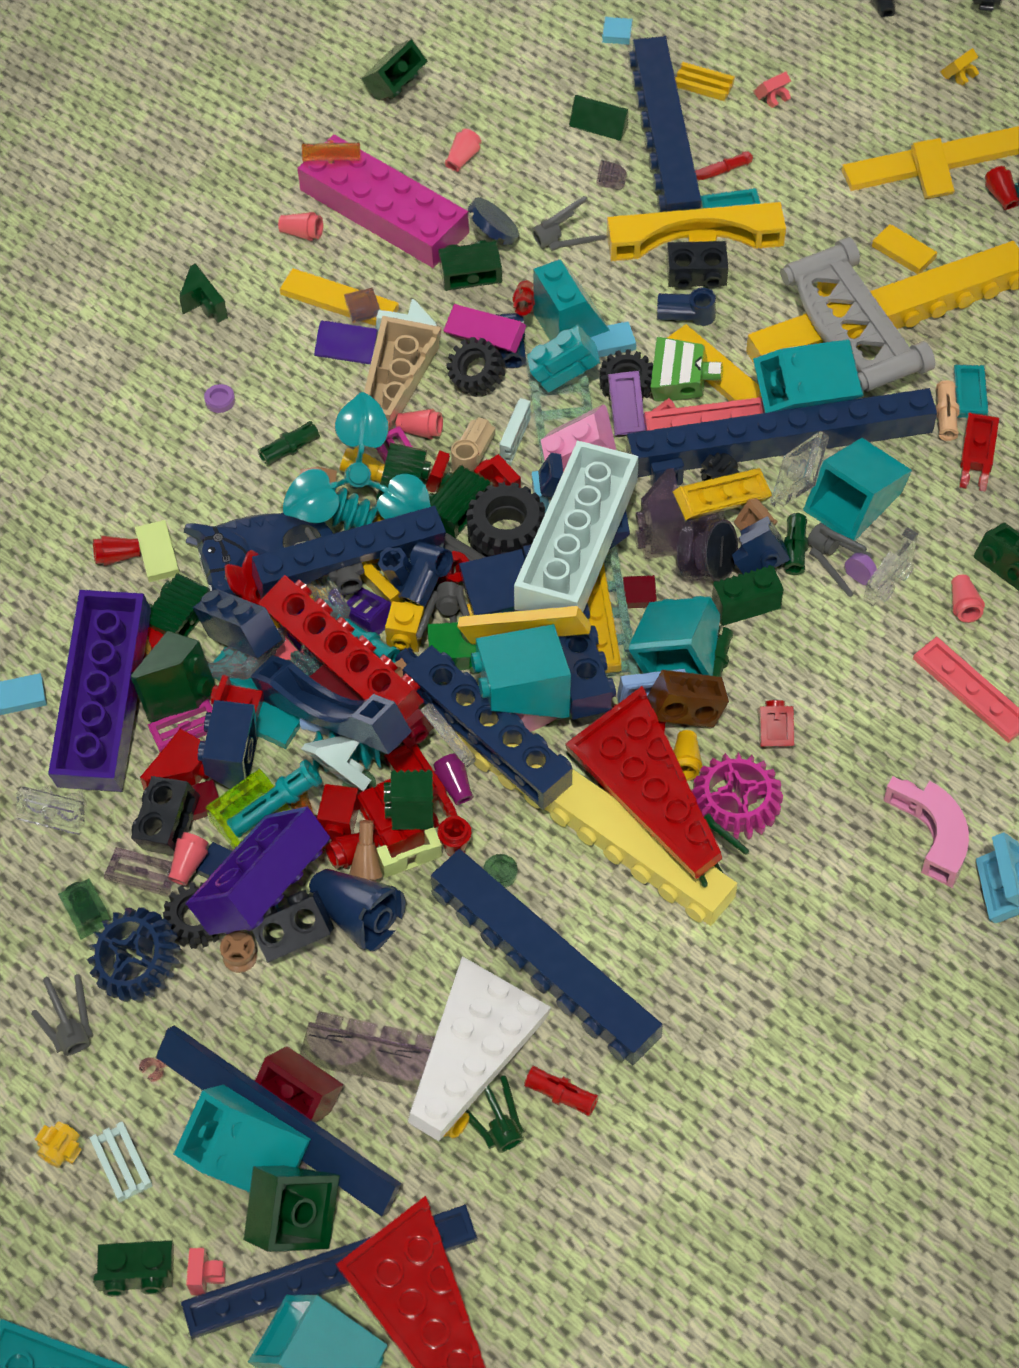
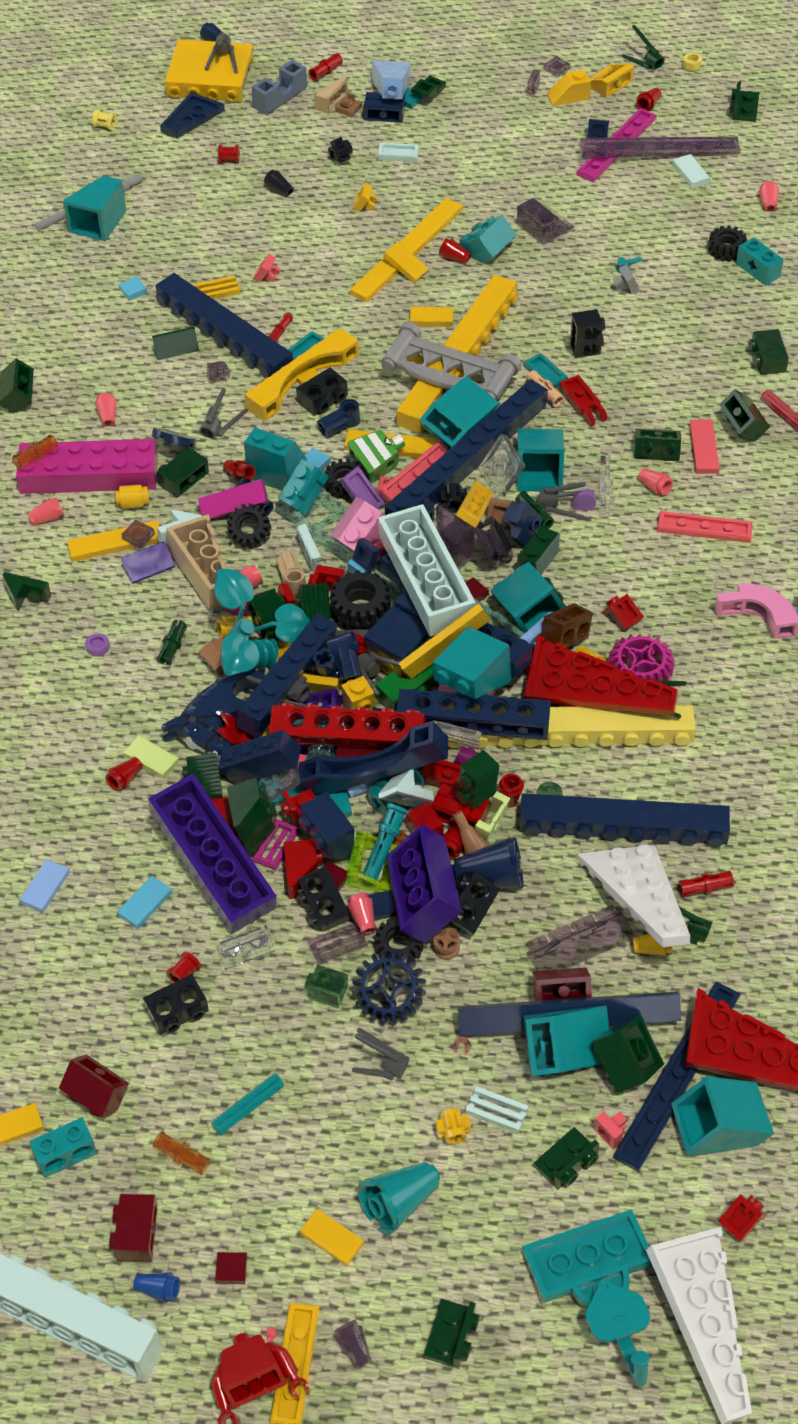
camera: 40 degrees left, 5 degrees down
(397, 261) = (132, 496): none -> yellow brick

